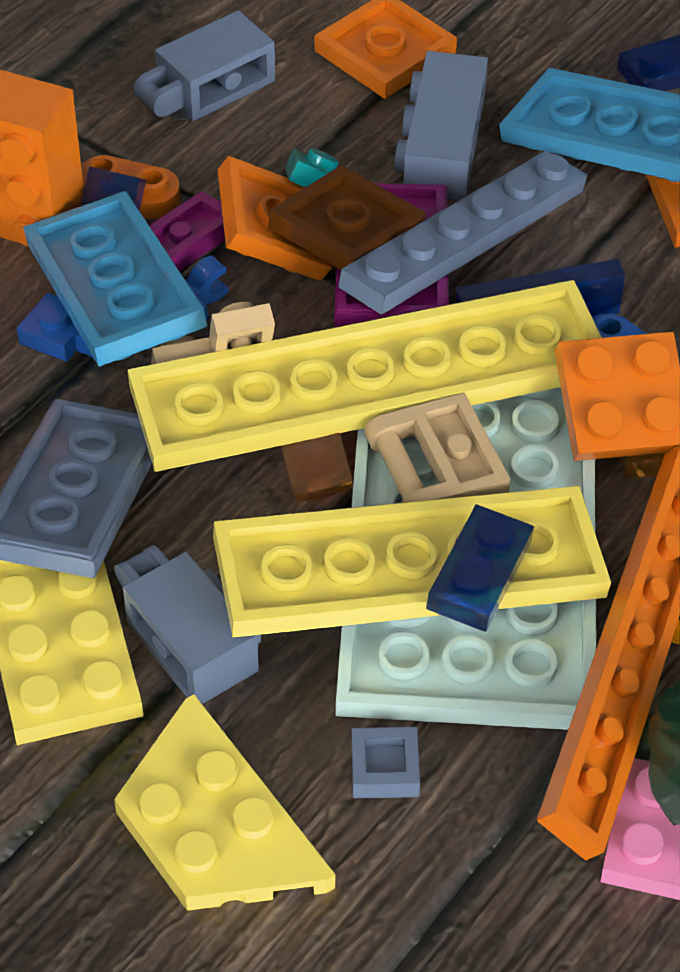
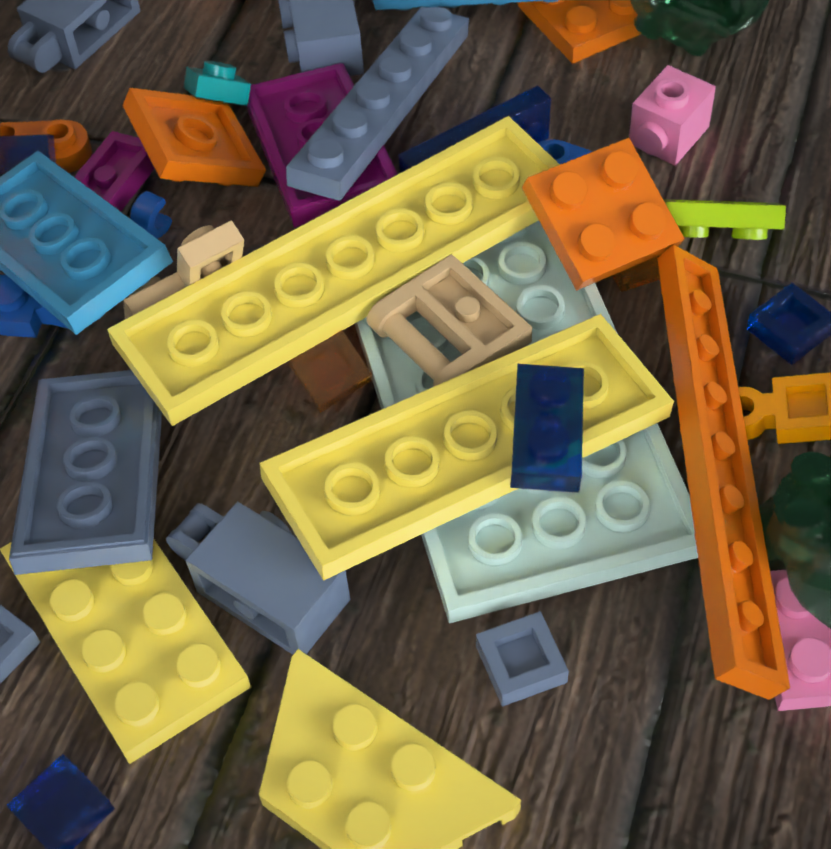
camera: 15 degrees left, 5 degrees up
(343, 217) = (264, 118): reddish brown plate -> none

